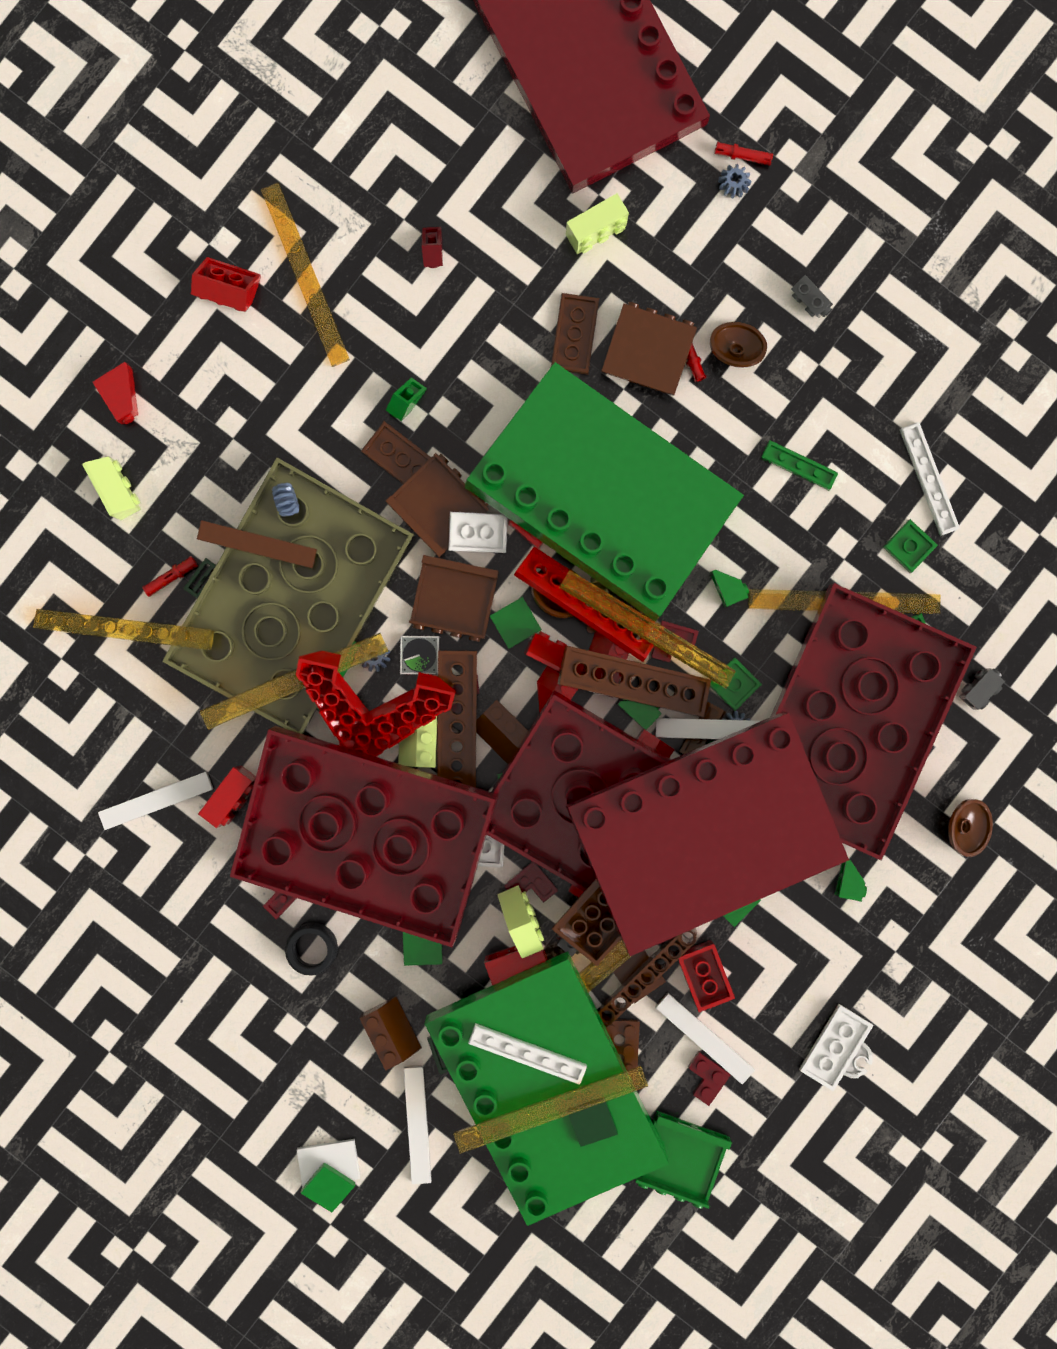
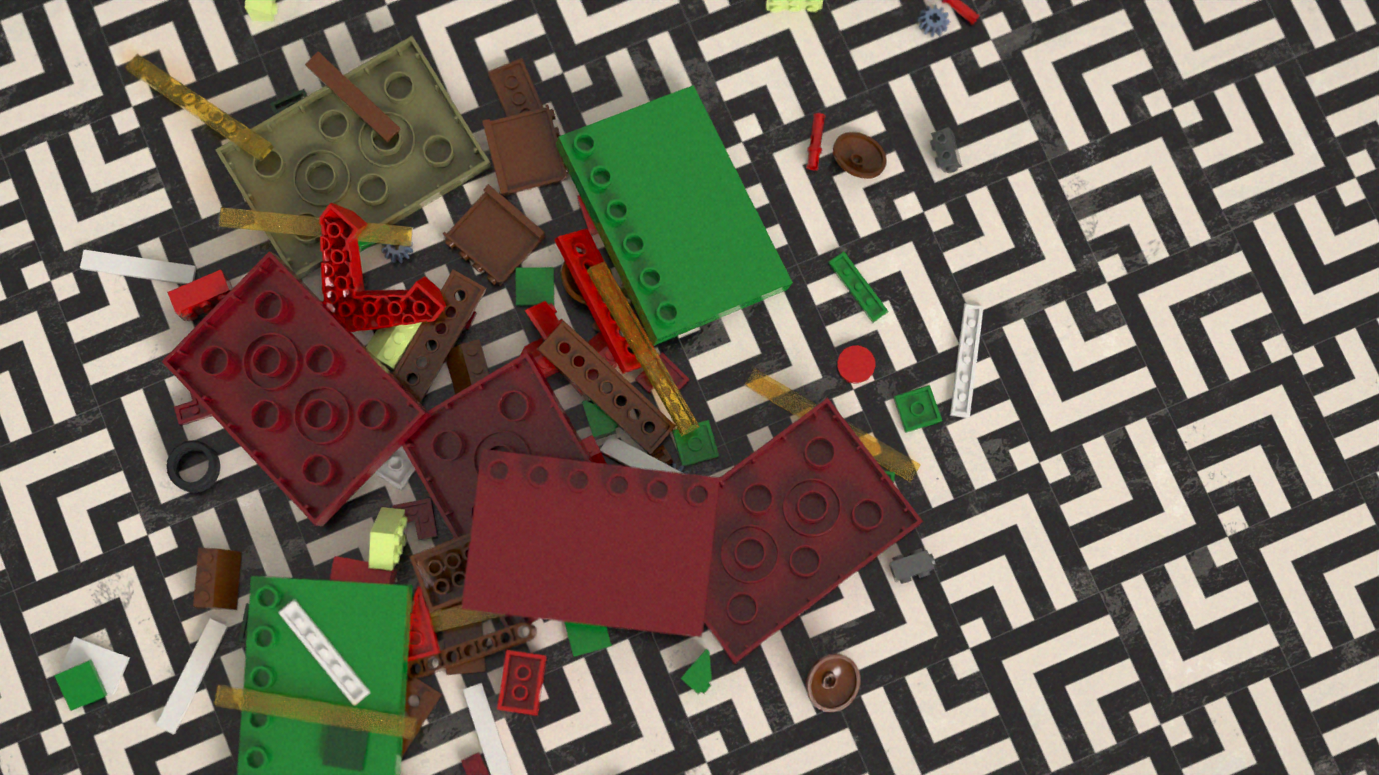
camera: 30 degrees right, 10 degrees down
(176, 572) = (265, 87): red pin -> none
(285, 499) = (398, 72): sand blue gear -> none
(405, 399) = (550, 49): green slope -> none
(419, 654) = (436, 265): tile -> none
(421, 951) = (288, 521): green tile -> none
(477, 532) = (546, 192): white tile -> none
(575, 332) = (727, 73): reddish brown tile -> none
(599, 986) = (422, 633): none -> red wing
(649, 348) = (780, 117): reddish brown panel -> none
(729, 588) = (737, 357): green slope -> none
(835, 536) = (856, 364): none -> red tile

